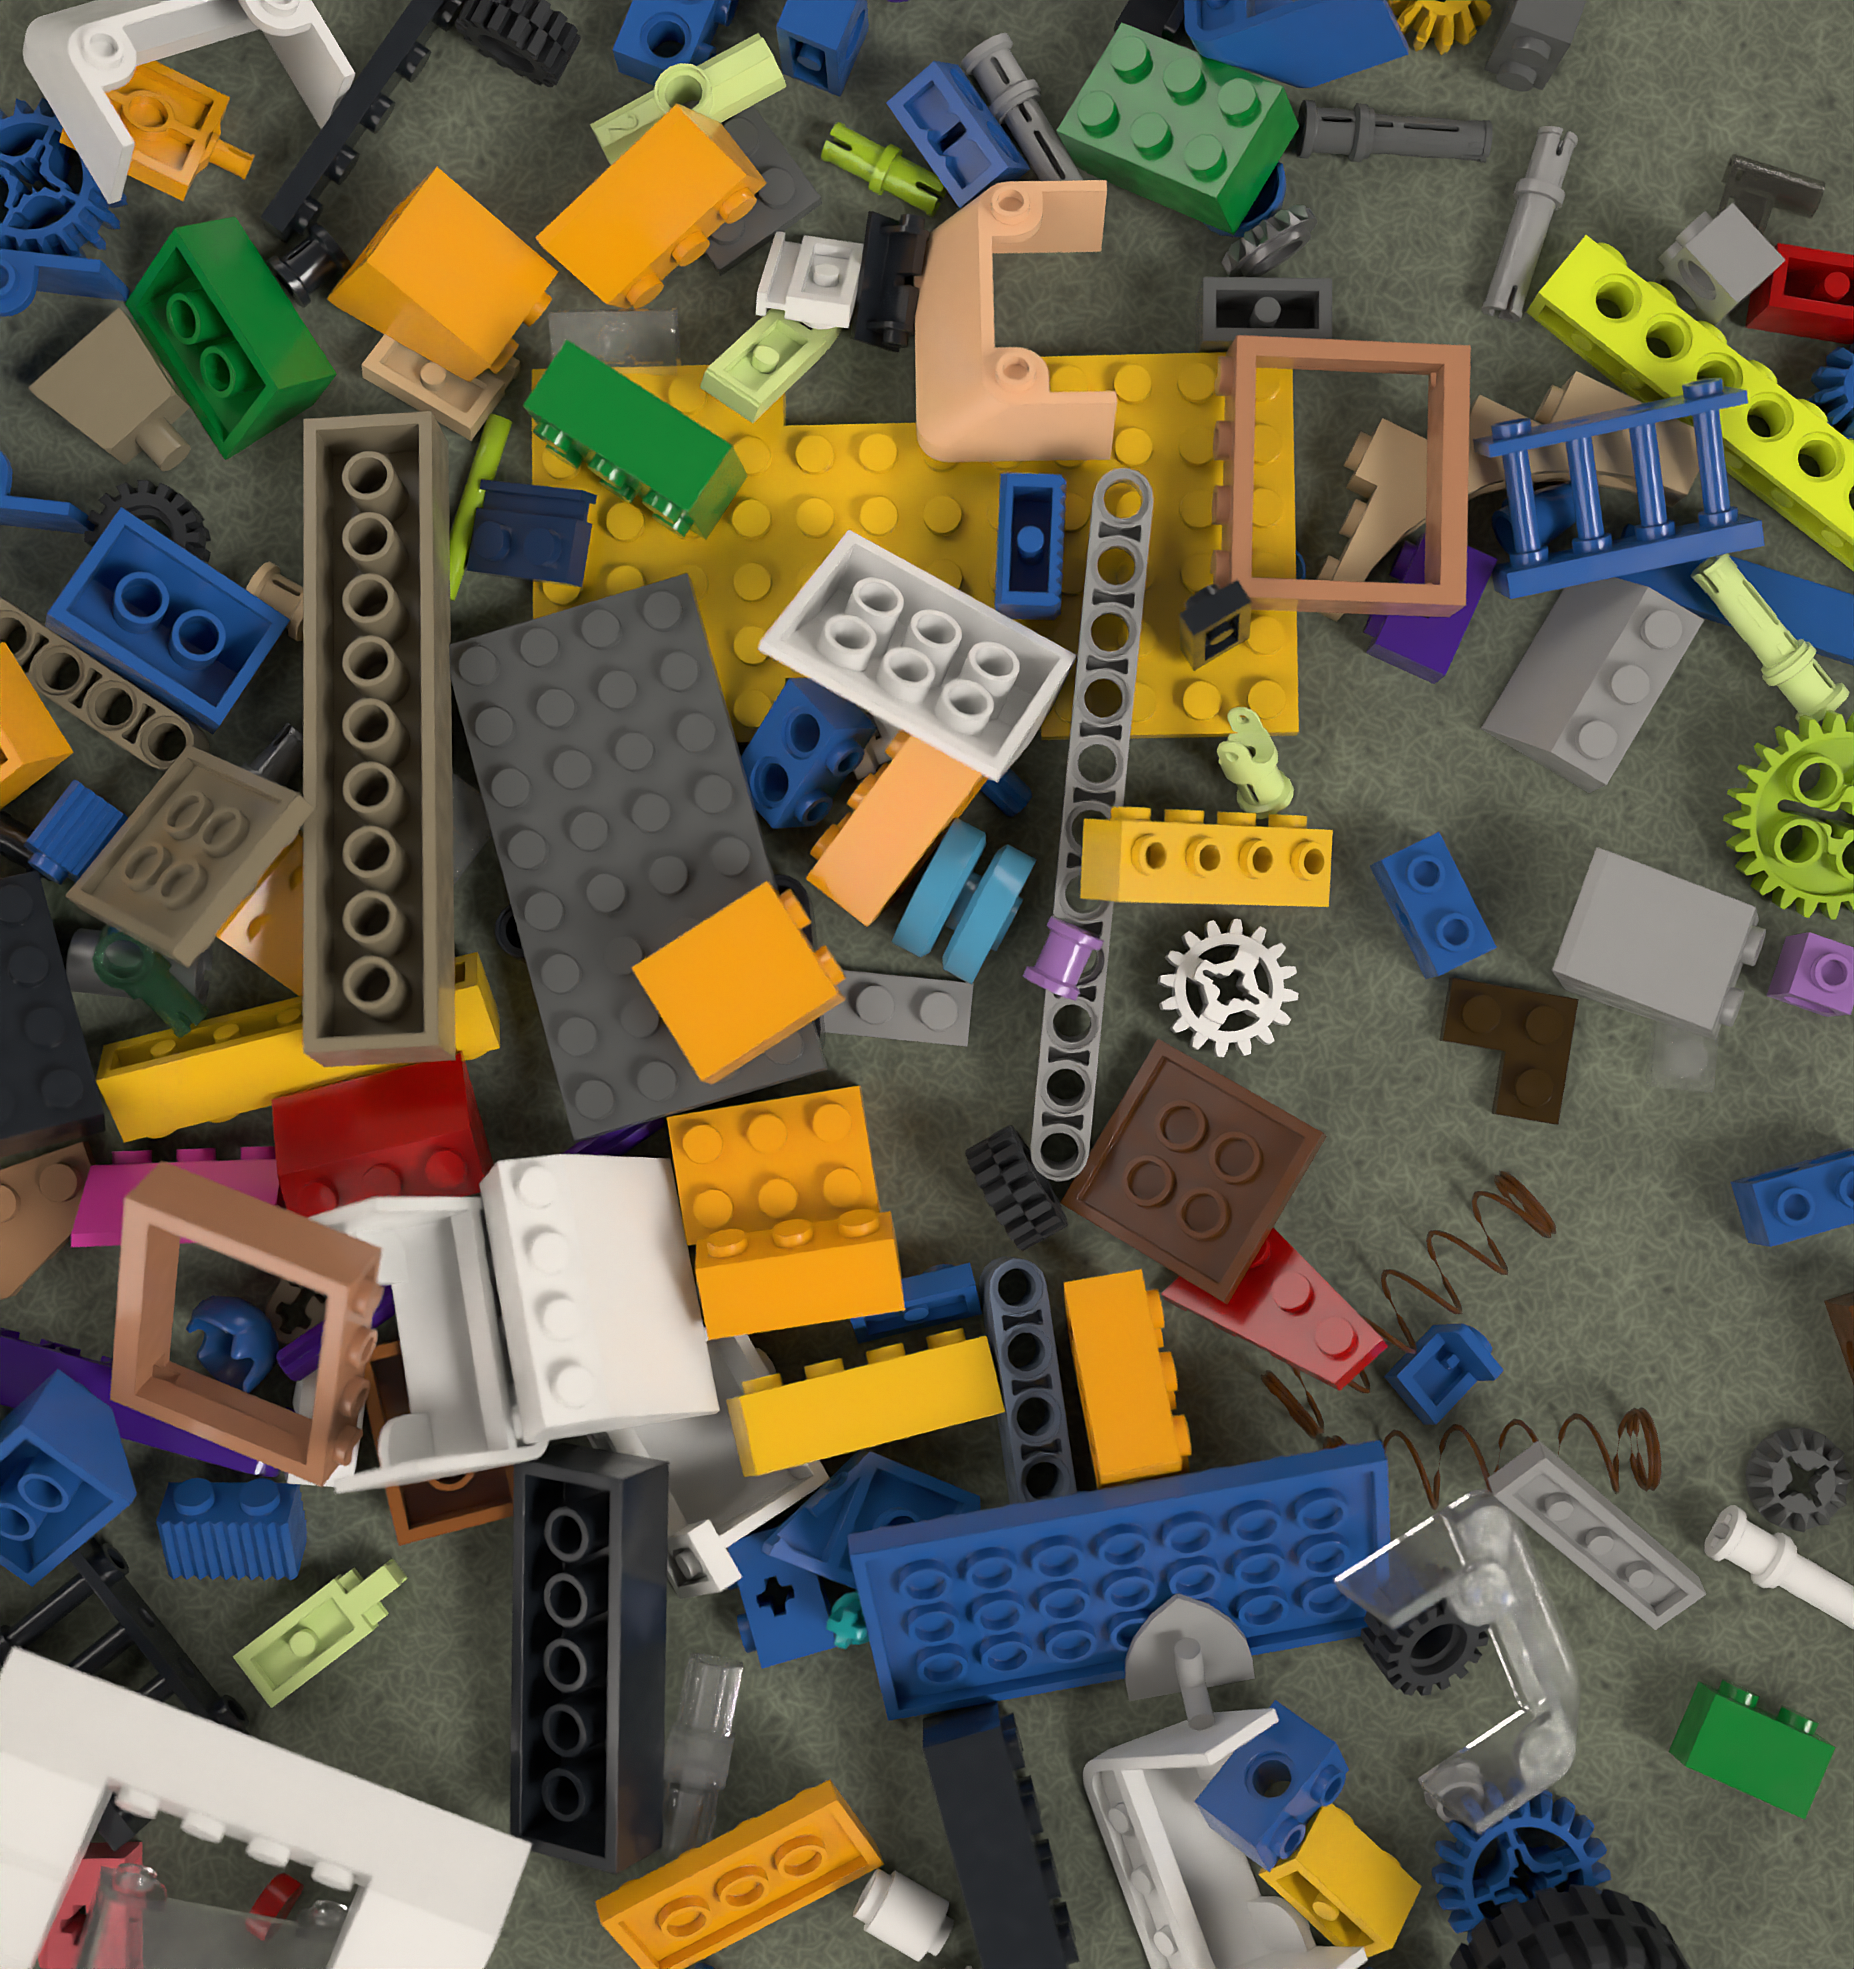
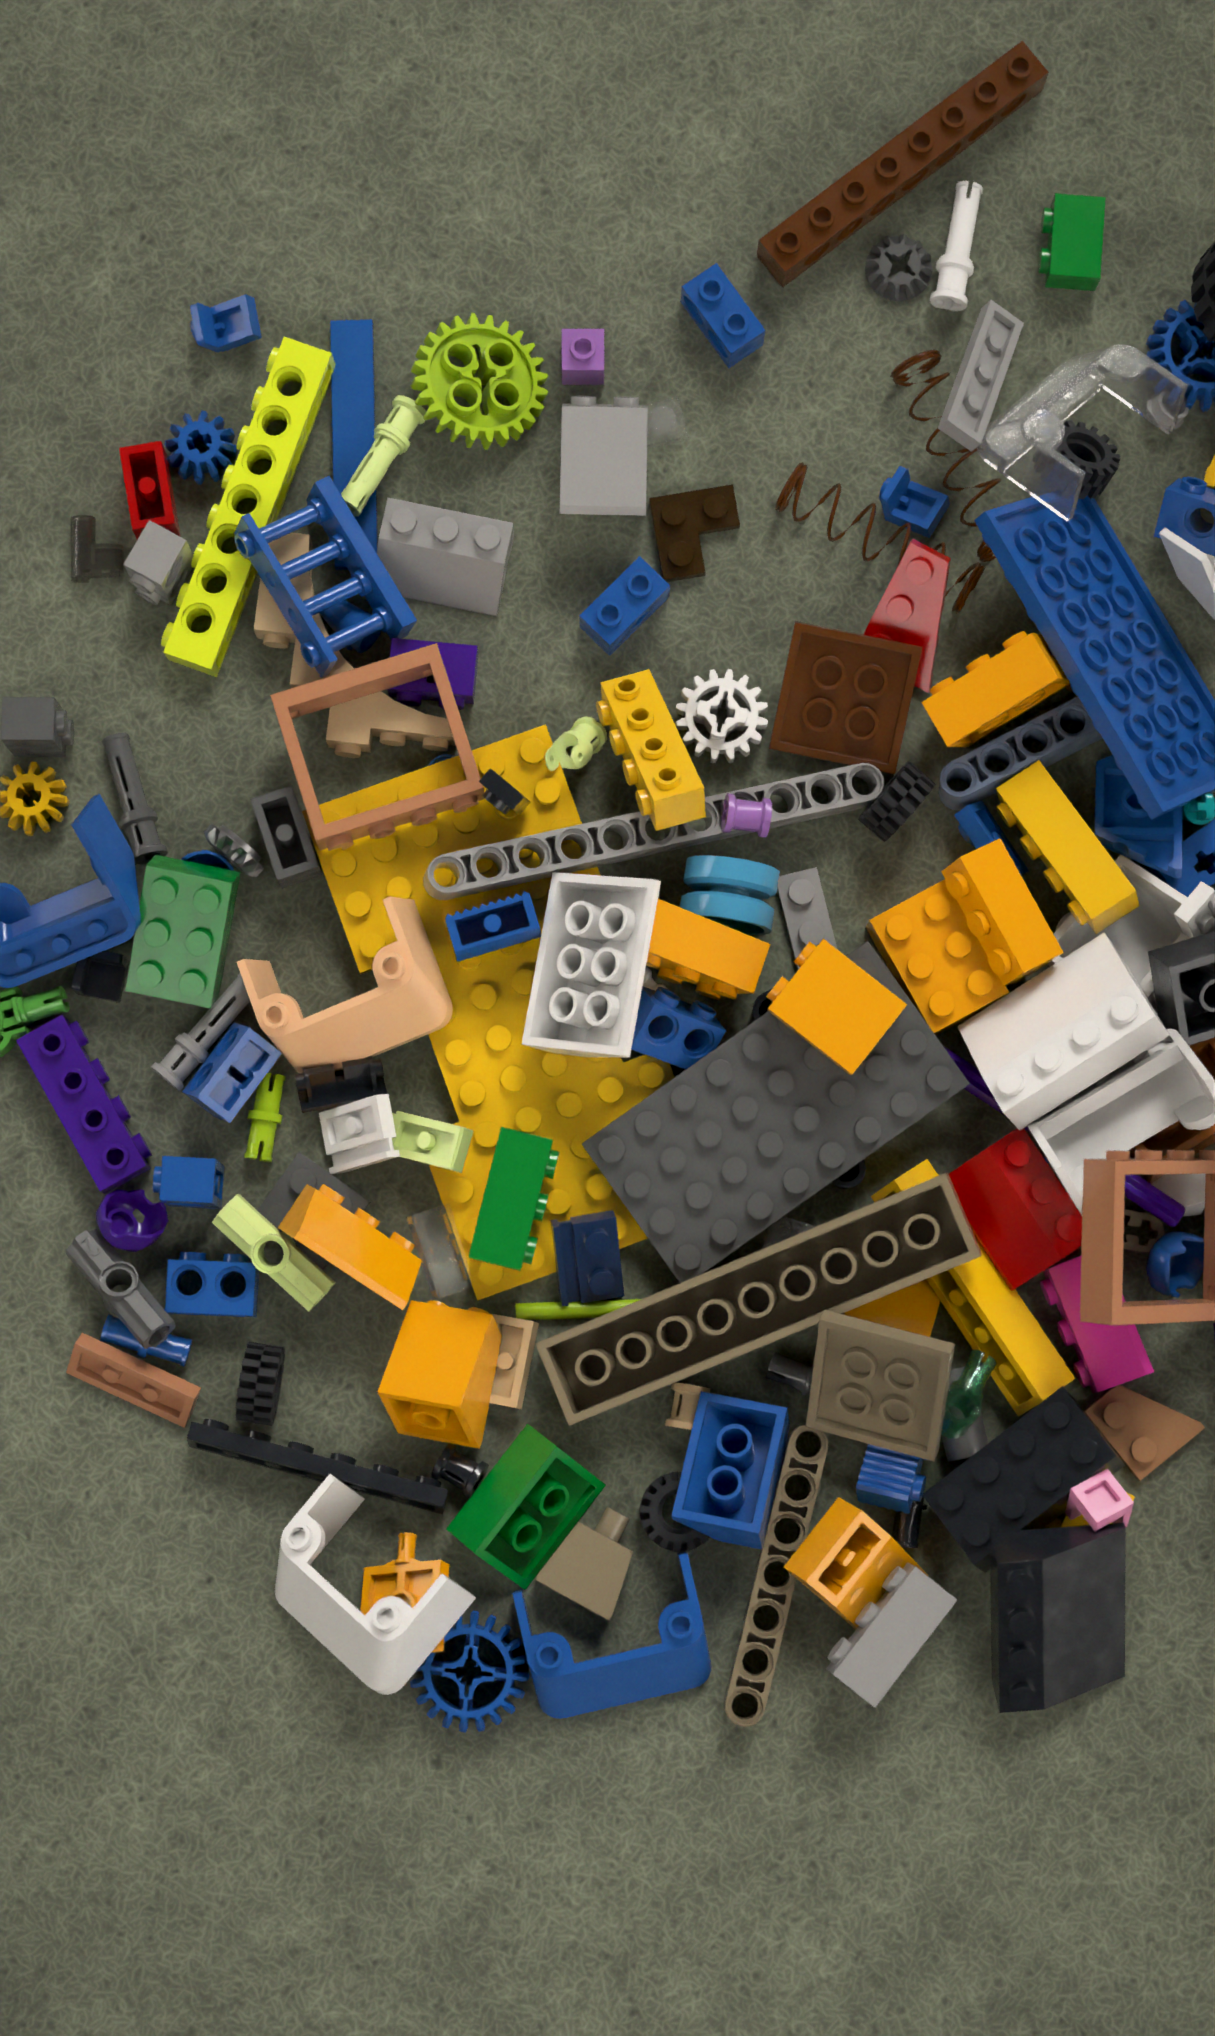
camera: 110 degrees left, 5 degrees down
(1185, 1651) = (1144, 599): light grey shield -> none
(1537, 199) = (160, 692): light grey pin -> none

